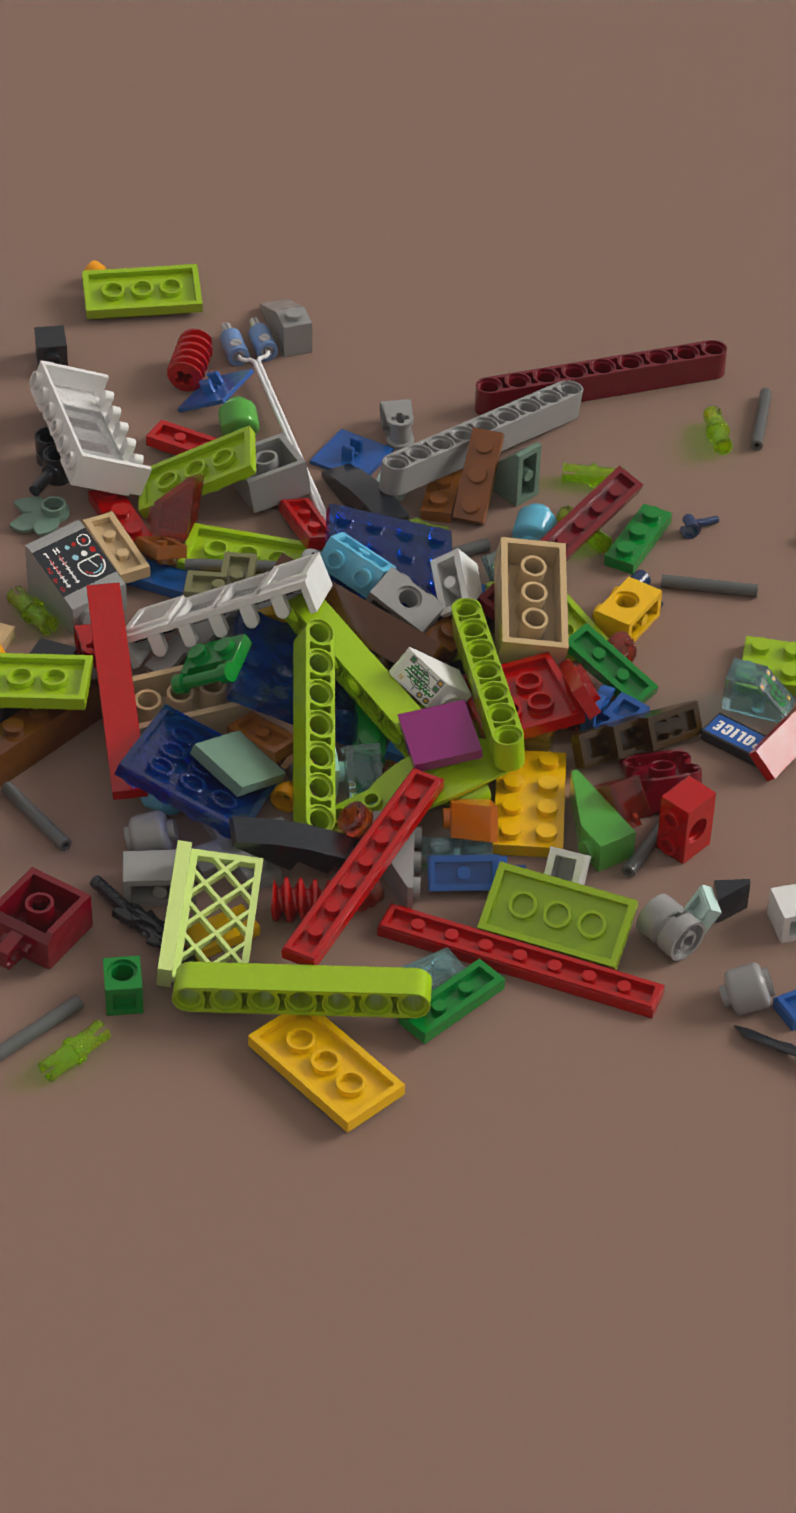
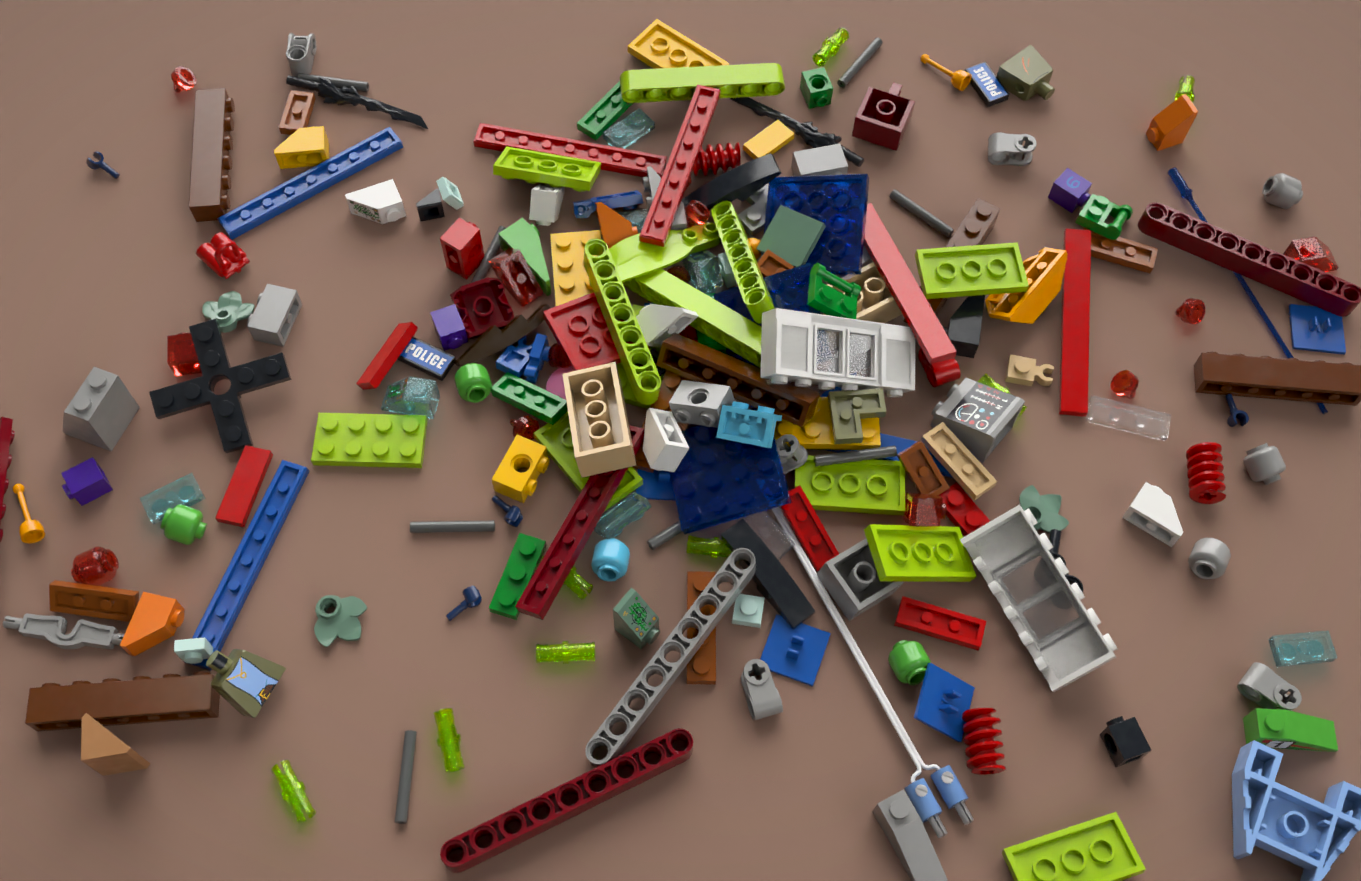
camera: 170 degrees right, 20 degrees up
(180, 905) = (793, 121): yellowish green fence -> none
(440, 736) = (648, 268): magenta tile -> none
(478, 476) = (668, 596): dark orange plate -> none
(581, 687) = (549, 342): red plate -> none
(670, 927) = (470, 173): light grey wheel -> none
(678, 688) = (473, 382): none -> bright green head
(711, 753) = (449, 327): none -> brick
(747, 988) = (418, 139): light grey head -> none

